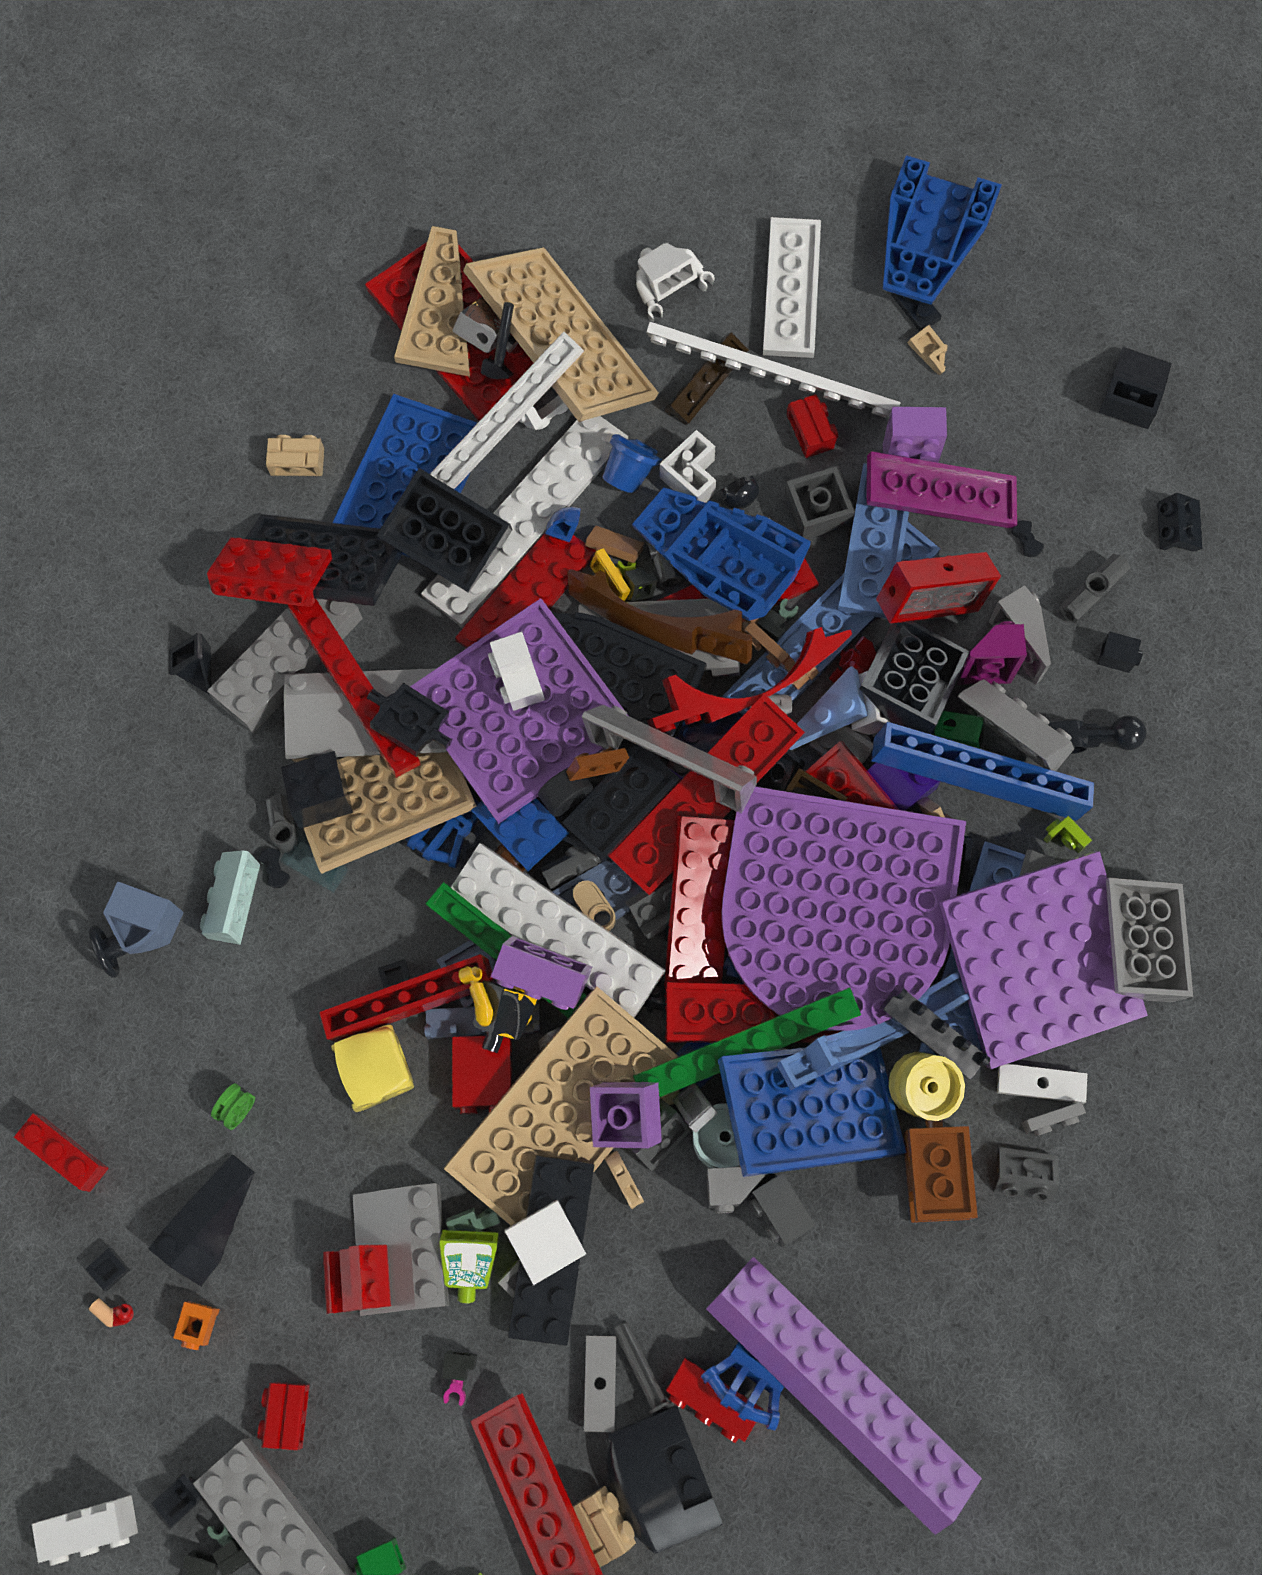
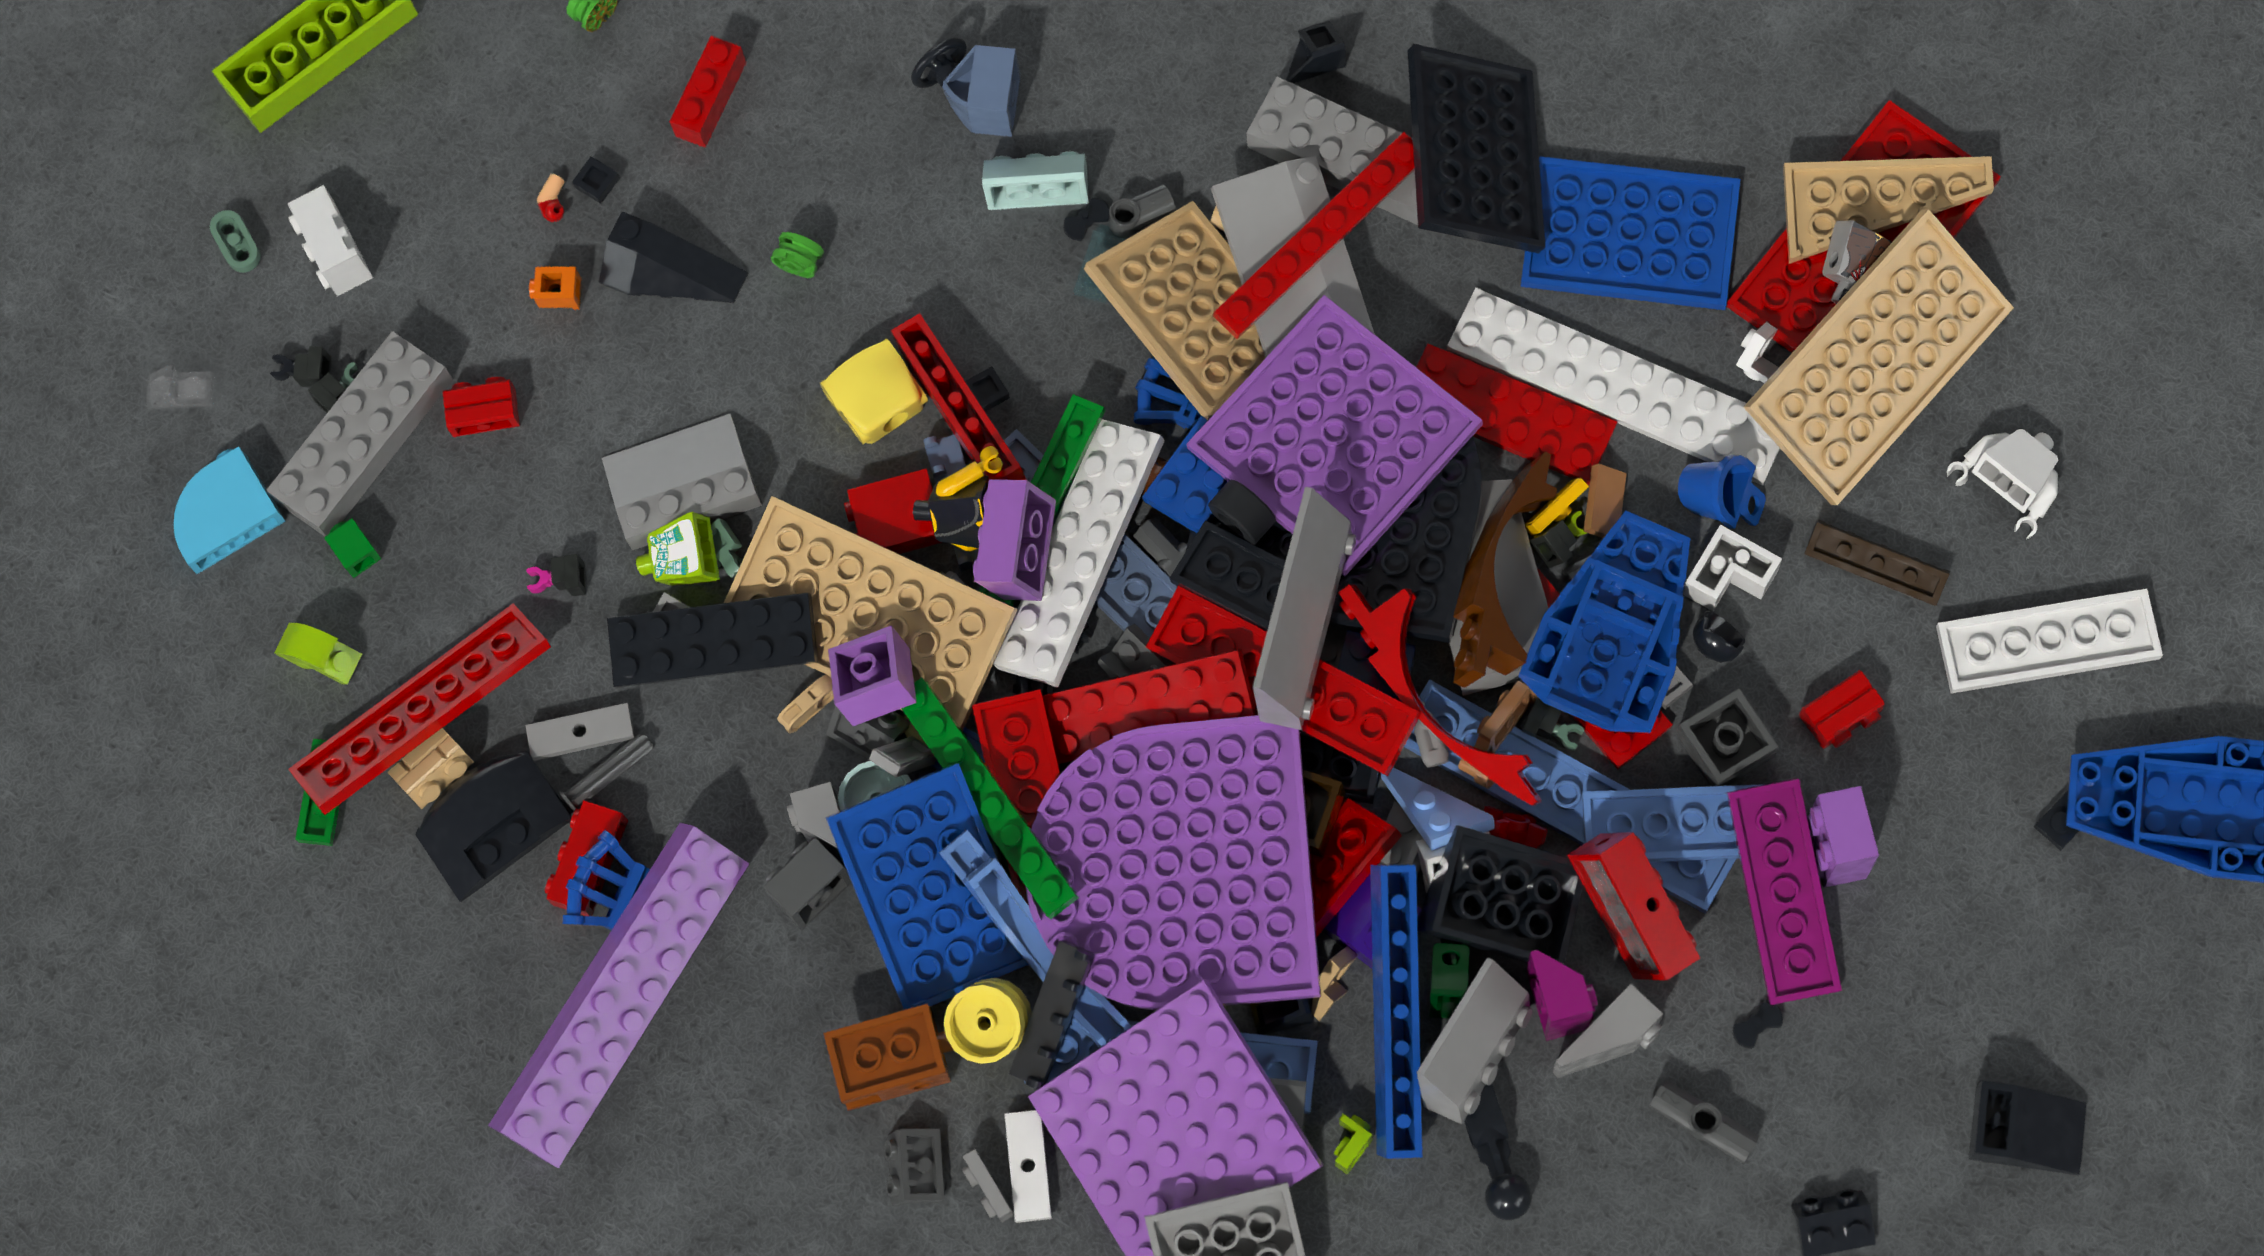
camera: 85 degrees right, 0 degrees up
(176, 1501) = (373, 322): black bracket -> none
(268, 571) = (1438, 96): red bracket -> none
(295, 456) = (1620, 87): tan brick -> none
(316, 790) = (1182, 234): black brick -> none
(357, 1278) = (636, 440): red piece -> none
(409, 719) = (1282, 307): black plate -> none
(444, 530) = (1553, 287): black slope -> none
(495, 368) = (1807, 287): black piece -> none
(508, 411) = (1725, 313): white tile -> none
(514, 664) = (1372, 414): white brick -> none
(545, 1242) = (714, 626): white tile -> none
(563, 523) = (1611, 429): blue brick -> none
(591, 901) = (1126, 584): tan piece -> none
(597, 764) = (1269, 521): dark orange plate -> none
(760, 367) = (1899, 635): white plate -> none
(929, 348) = (2009, 843): tan slope -> none
(1120, 652) = (1620, 1170): black brick -> none

